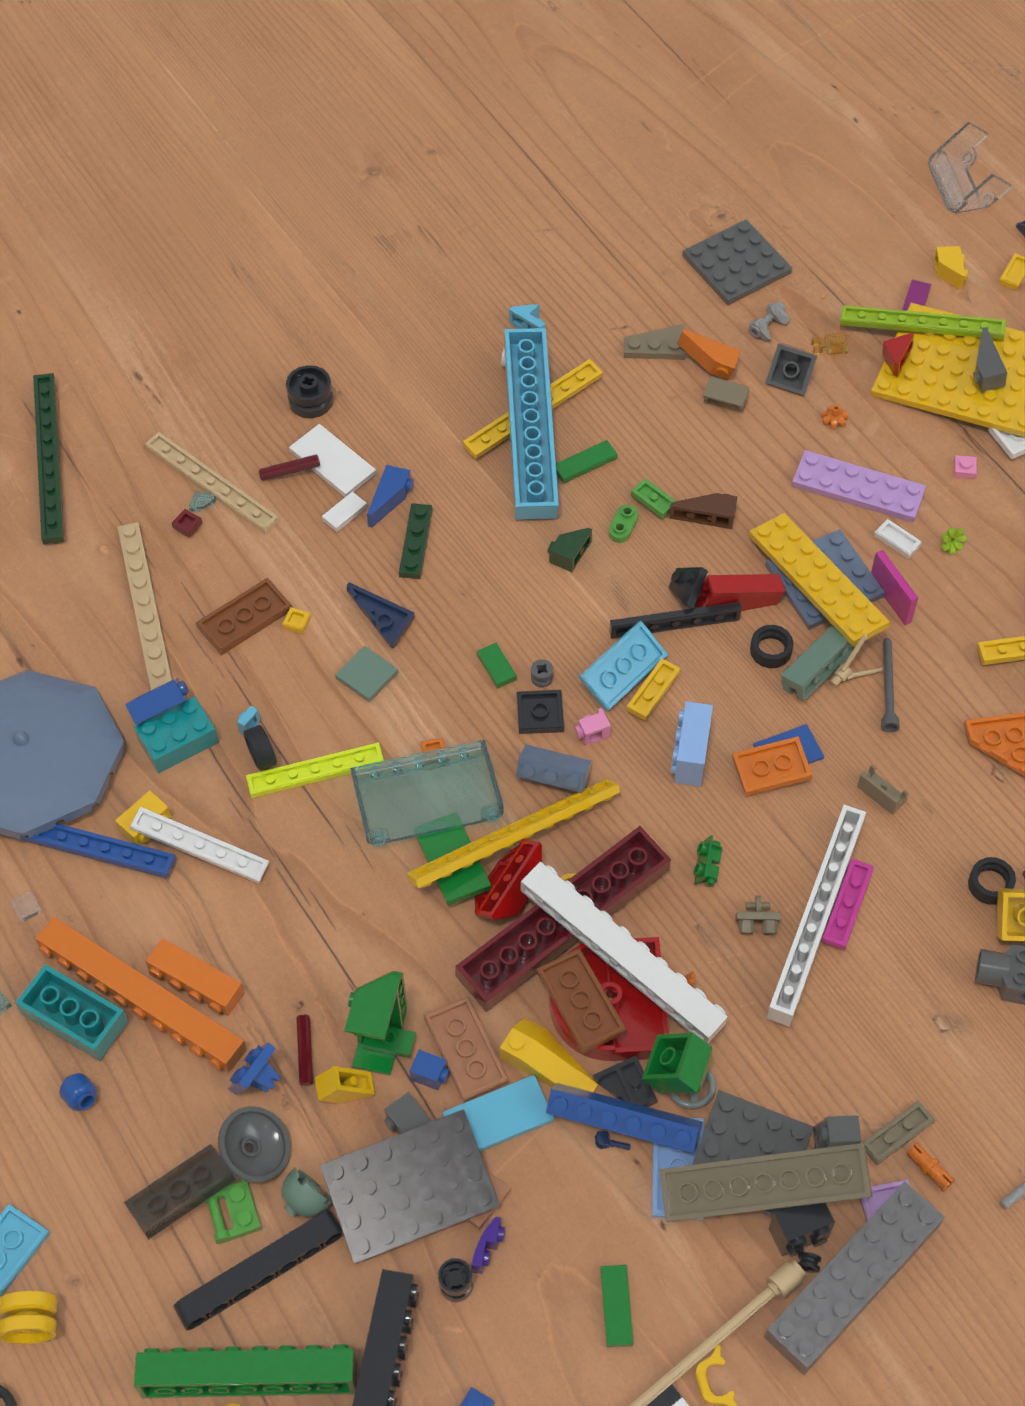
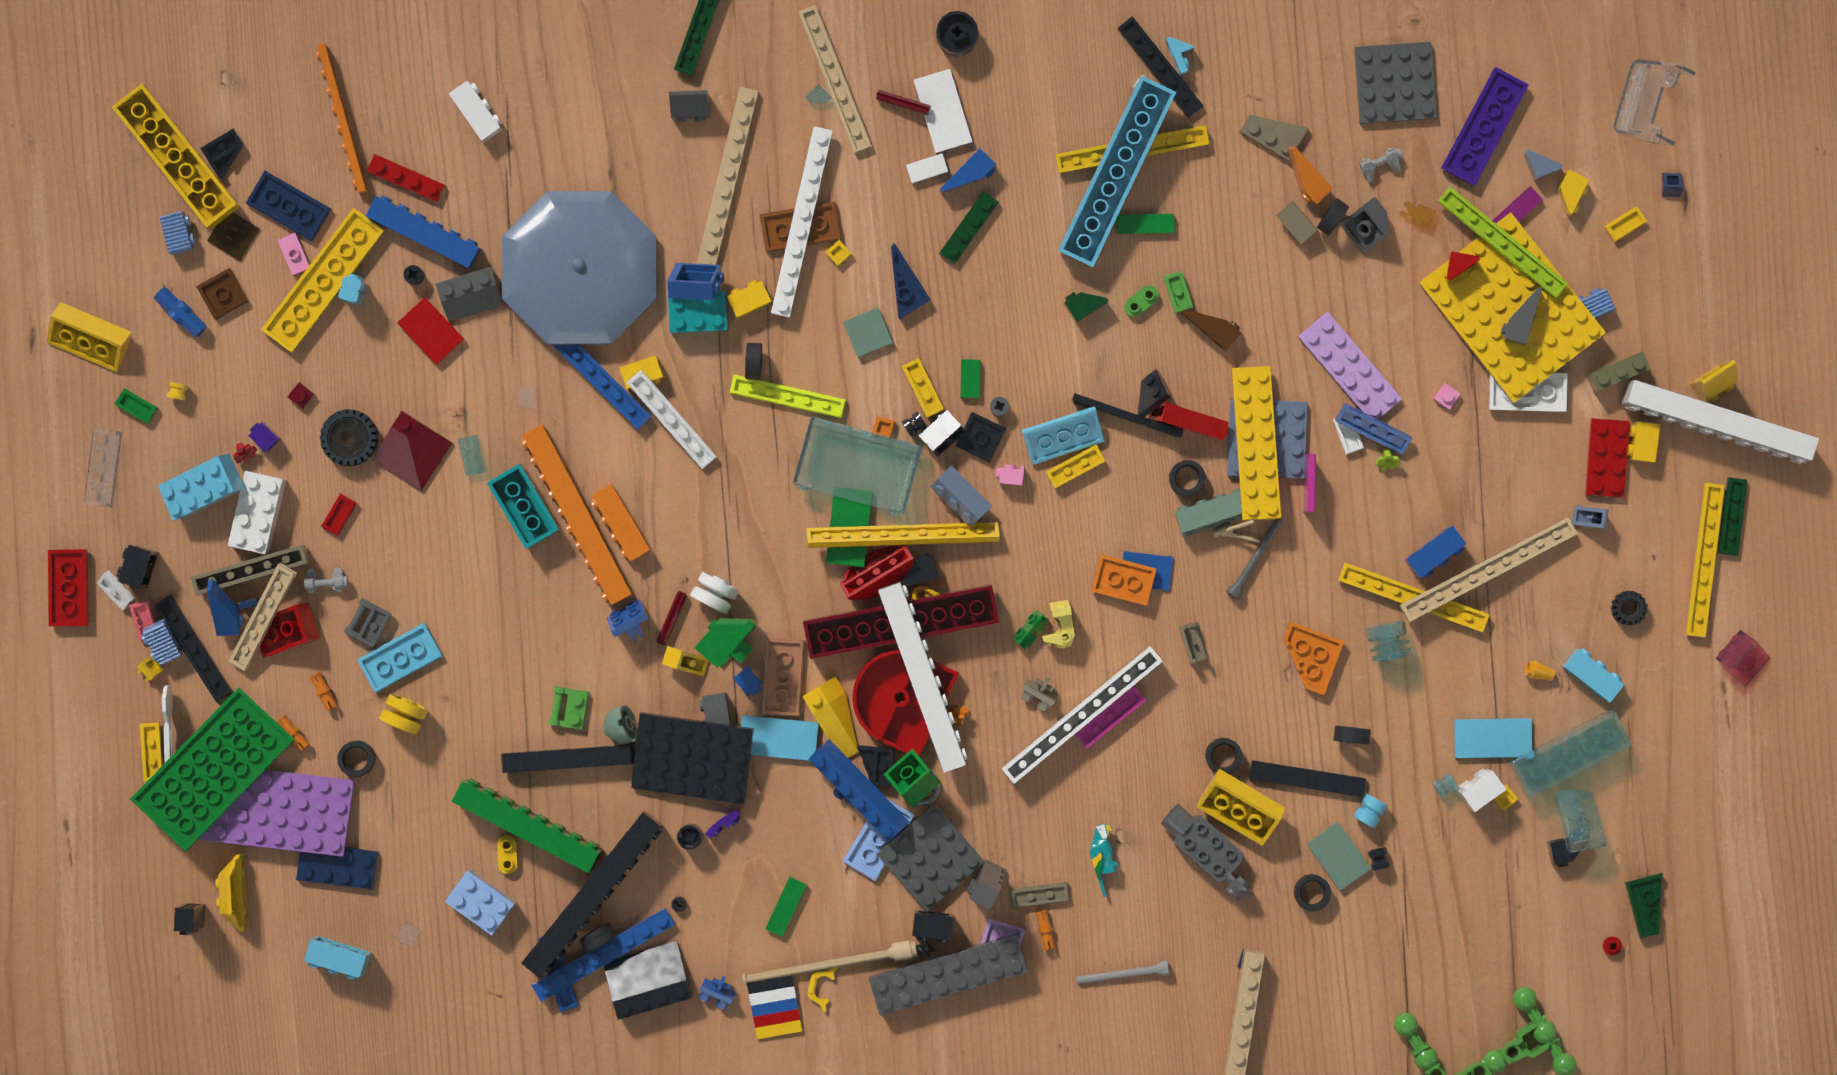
camera: 30 degrees right, 30 degrees up
(72, 557) = (689, 105): none -> dark grey slope
(78, 1092) = (503, 567): blue head -> none
(179, 1191) = (540, 676): clear smoke tile -> none
(187, 523) = (796, 113): dark red plate -> none
(225, 698) = (749, 298): none -> yellow brick
(243, 609) = (801, 222): none -> white plate
(248, 719) = (757, 328): medium azure plate -> none
(265, 1138) = (611, 679): dark grey dish -> none
(333, 987) = (715, 591): none -> white wheel
(453, 694) = (922, 387): none -> yellow plate
(464, 728) = (918, 422): none -> black wheel
(484, 1380) = (682, 901): none -> black hinge
(494, 334) = (1160, 66): none -> black tile
(498, 721) = (942, 433): none -> brick
(559, 855) = (921, 570): none -> black slope
(581, 1001) = (875, 693): dark orange tile -> none
(691, 743) = (1073, 533): light blue brick -> none
(746, 839) = (1061, 611): none -> light yellow tile
(756, 371) = (1333, 217): none -> black tyre
(766, 1182) = (920, 891): dark tan plate -> none
(834, 415) = (1371, 292): orange plant -> none
(839, 256) = (1484, 126): none -> dark purple plate
(908, 259) = (1540, 165): none -> sand blue slope
(918, 517) = (1373, 428): none -> blue plate
(936, 1047) = (1102, 854): none -> teal animal

